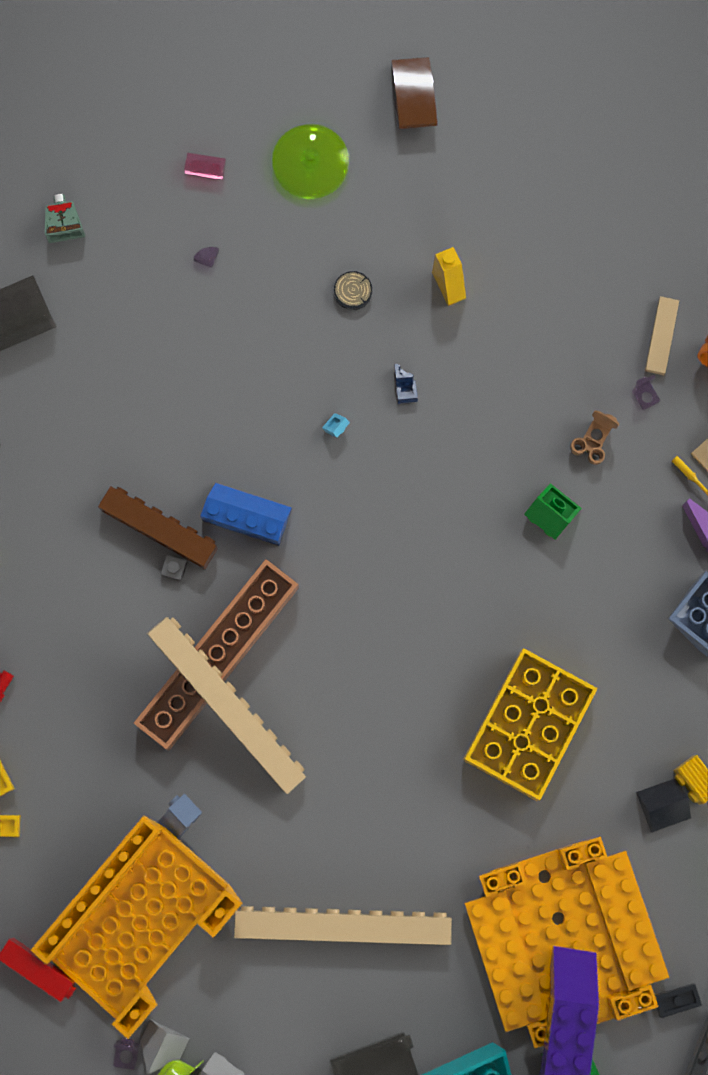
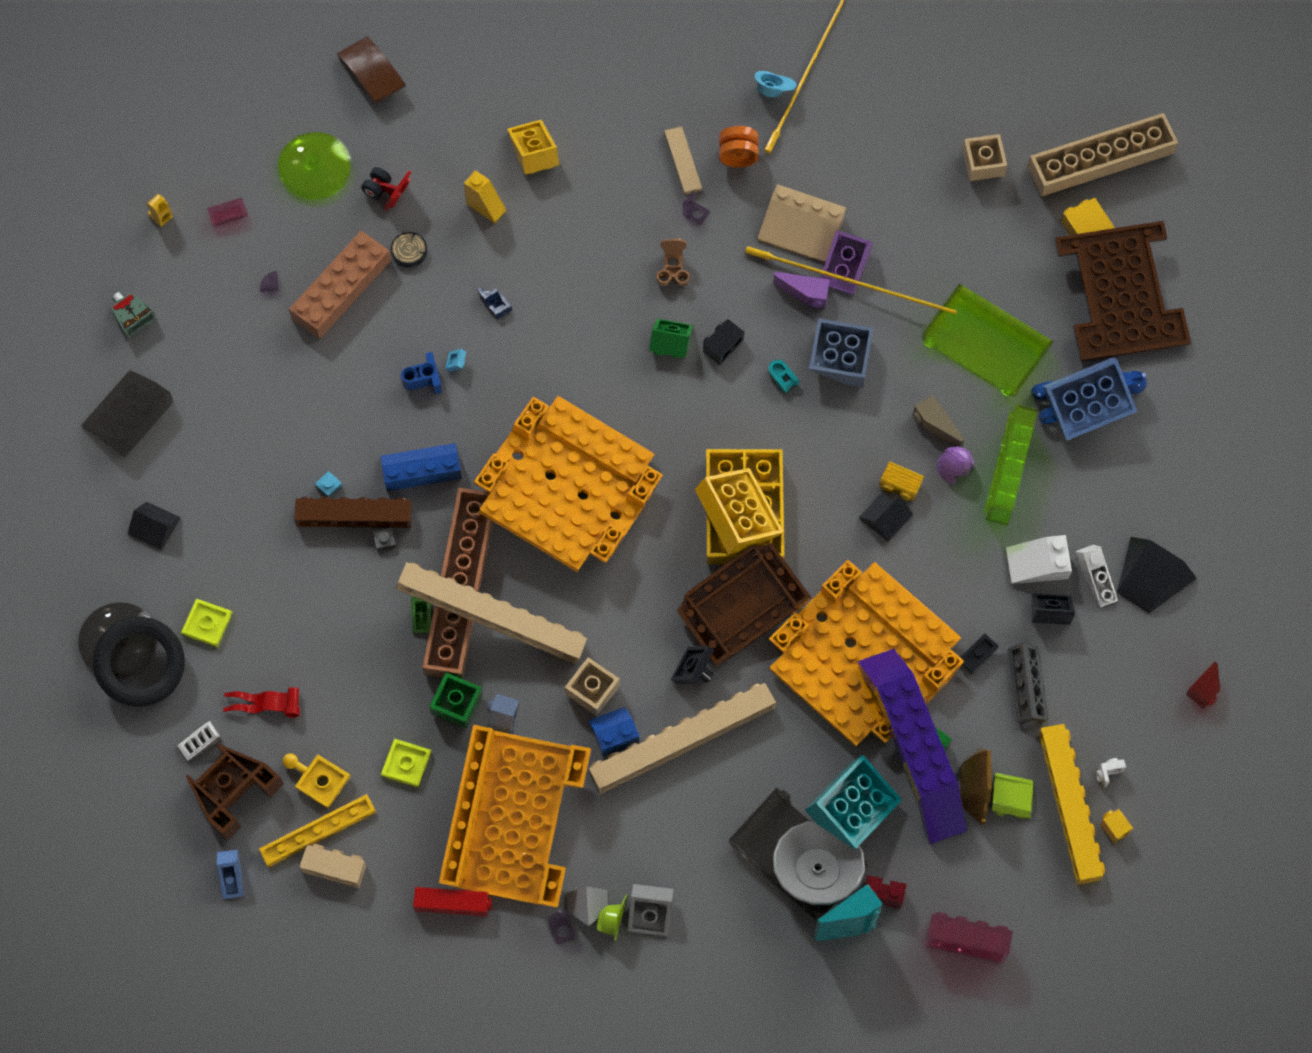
camera: 25 degrees left, 10 degrees down
(72, 804) = (406, 763): none -> neon yellow tile
(142, 131) = (158, 208): none -> yellow leg
(149, 770) = (456, 700): none -> green brick
(152, 485) = (328, 484): none -> medium azure plate
(162, 668) = (421, 615): none -> bright green slope
(269, 292) = (340, 284): none -> nougat brick
(282, 881) = (614, 731): none -> blue slope
(284, 828) = (592, 686): none -> tan brick
(294, 419) = (420, 379): none -> blue tile
(361, 211) = (381, 183): none -> plate
(392, 861) = (693, 666): none -> black tile
(401, 590) = (584, 459): none -> light orange slope
(474, 823) = (742, 601): none -> reddish brown slope
(520, 731) = (738, 510): none -> yellow slope
(525, 248) = (533, 147): none -> yellow slope
(601, 541) = (723, 341): none -> black brick
(640, 599) = (777, 371): none -> teal plate

